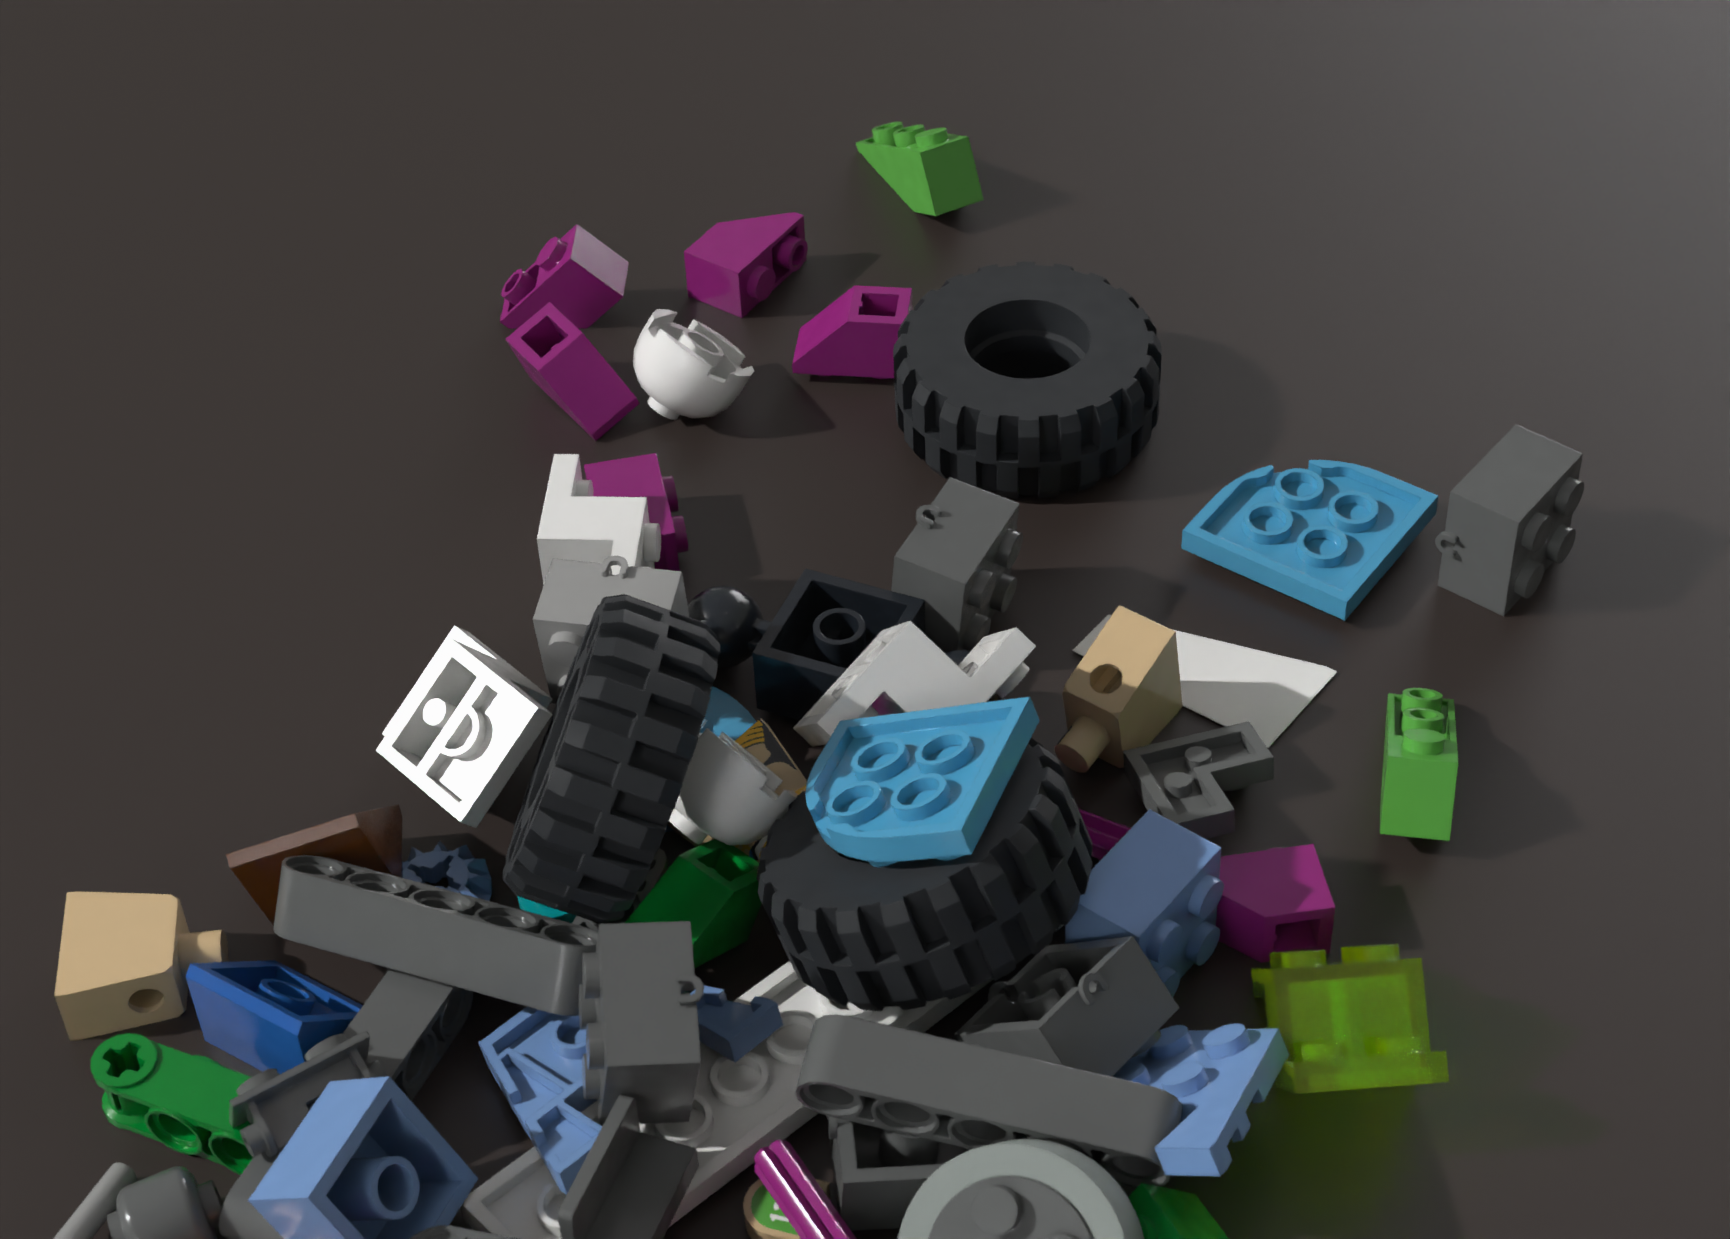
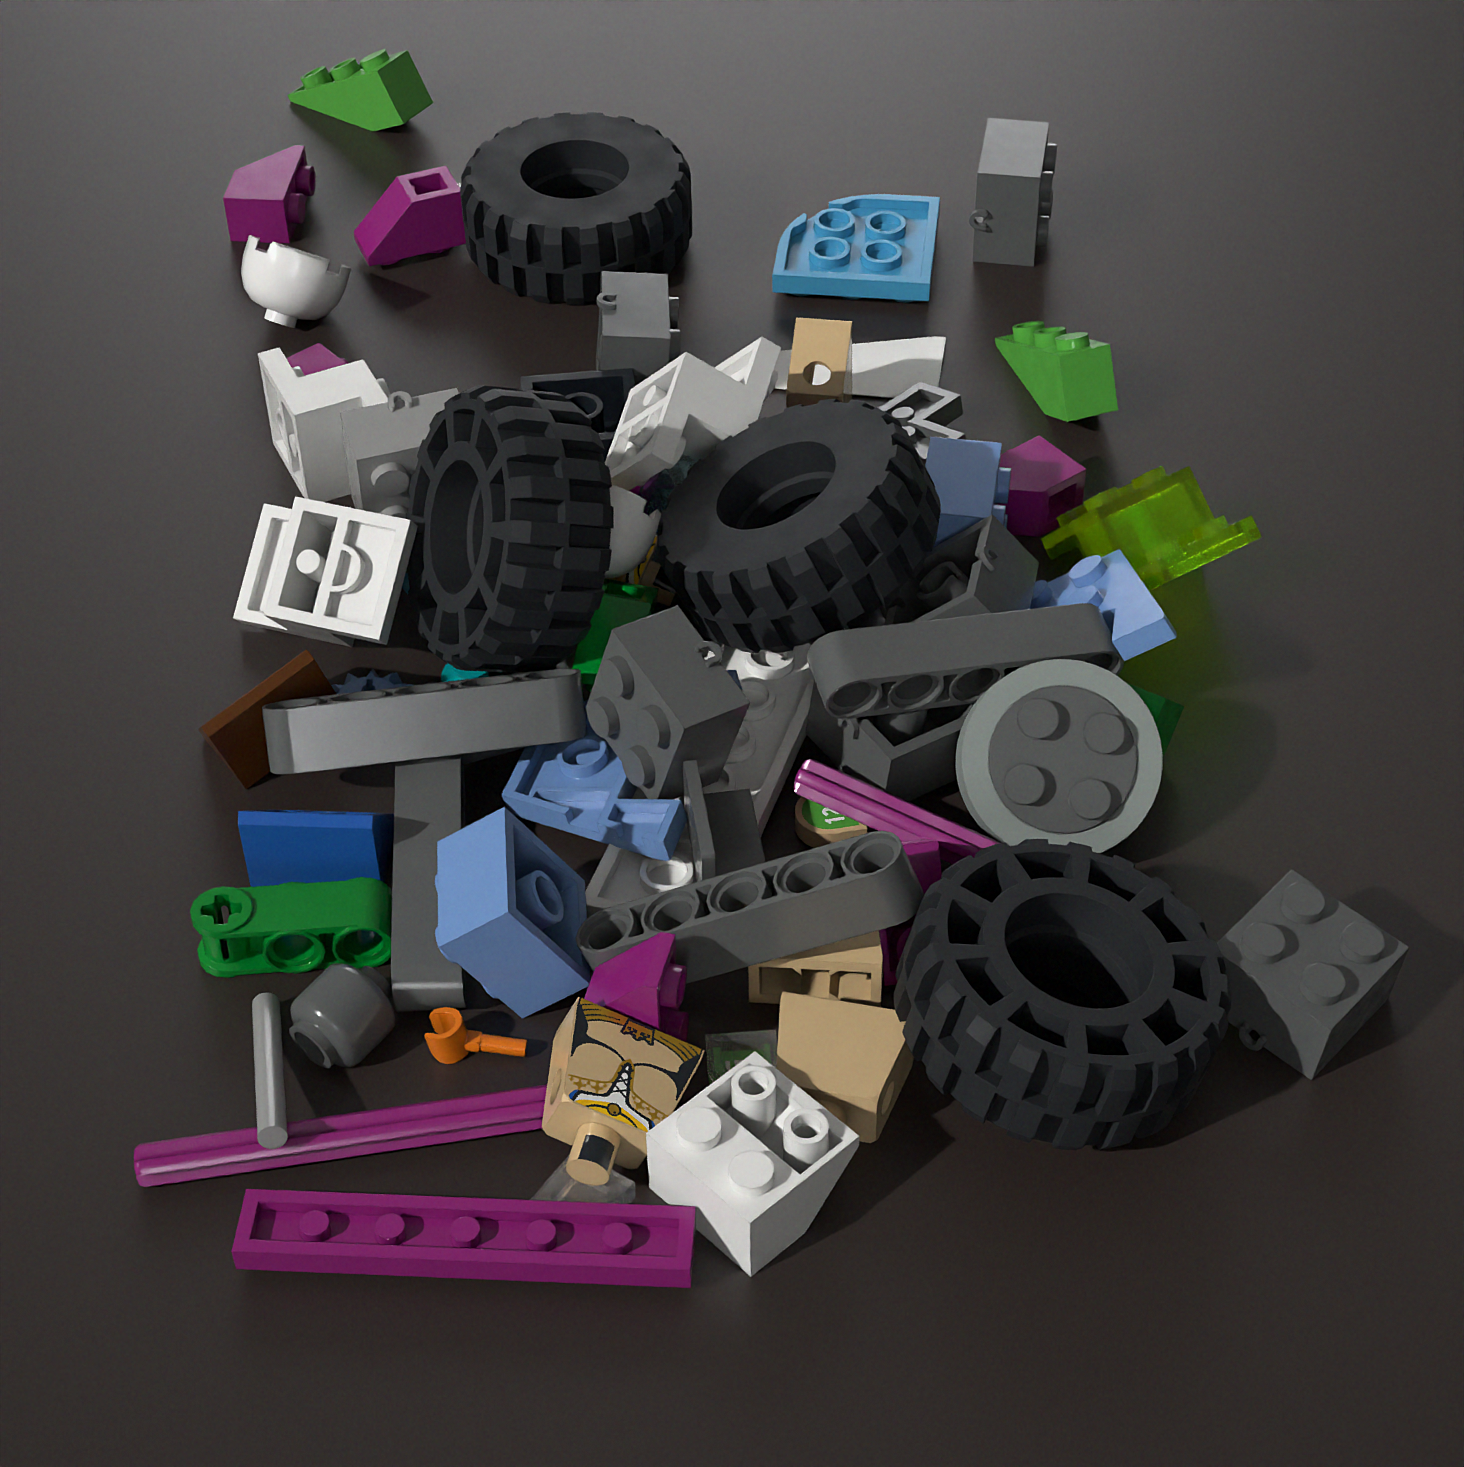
camera: 30 degrees left, 0 degrees up
(127, 961) = (148, 848): tan torso -> none
(279, 1102) = (394, 884): dark grey hinge -> none
(571, 371) = (190, 311): magenta slope -> none
(572, 274) = (128, 256): magenta slope -> none
(917, 779) = (777, 453): dark azure plate -> none

